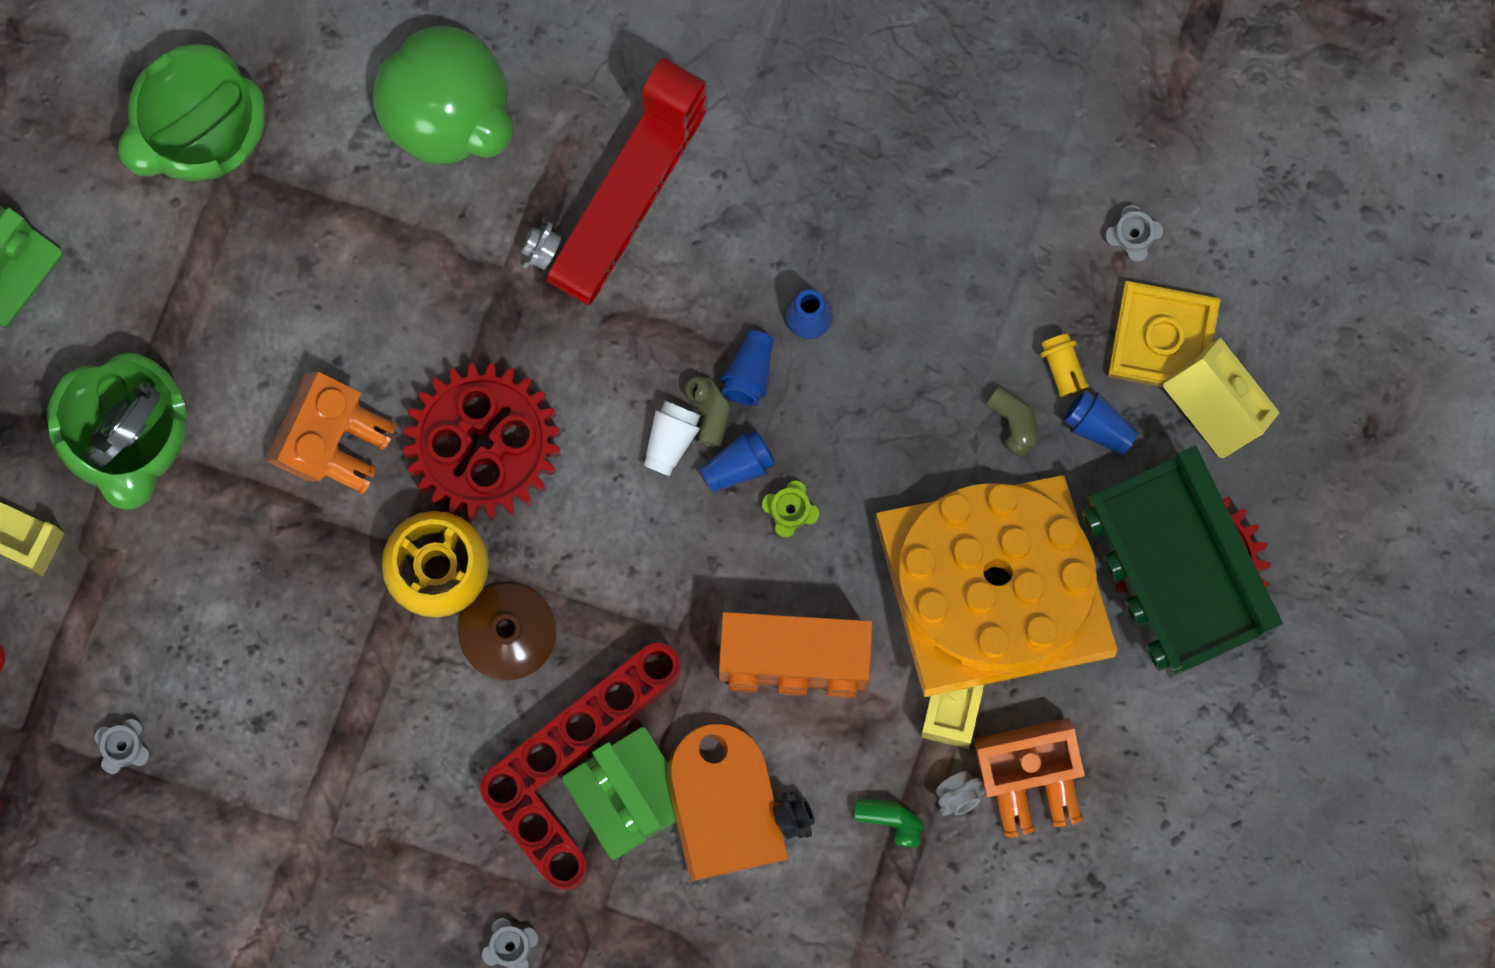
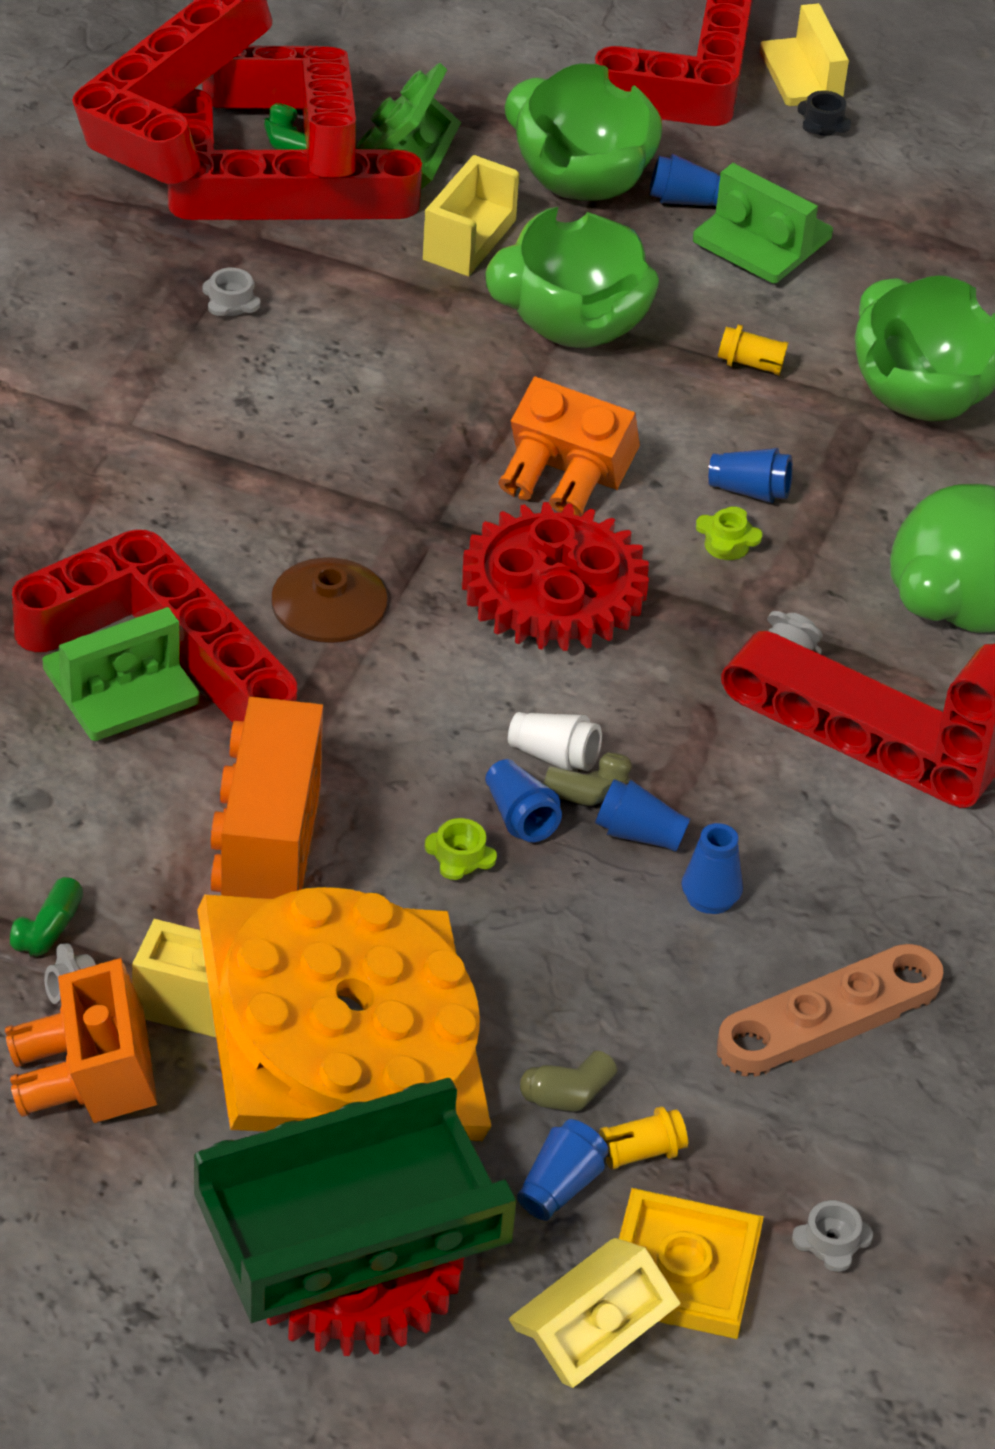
camera: 90 degrees right, 35 degrees down
(121, 425) = (577, 265): dark grey plate -> none
(168, 274) = (752, 350): none -> yellow pin
(336, 276) = (753, 473): none -> blue cone
(406, 311) = (728, 533): none -> lime plate
(467, 585) = (408, 509): yellow wheel -> none
(723, 806) = (92, 757): orange tile -> none
(794, 815) = (65, 806): black plate -> none
(923, 228) = (829, 1009): none -> nougat plate

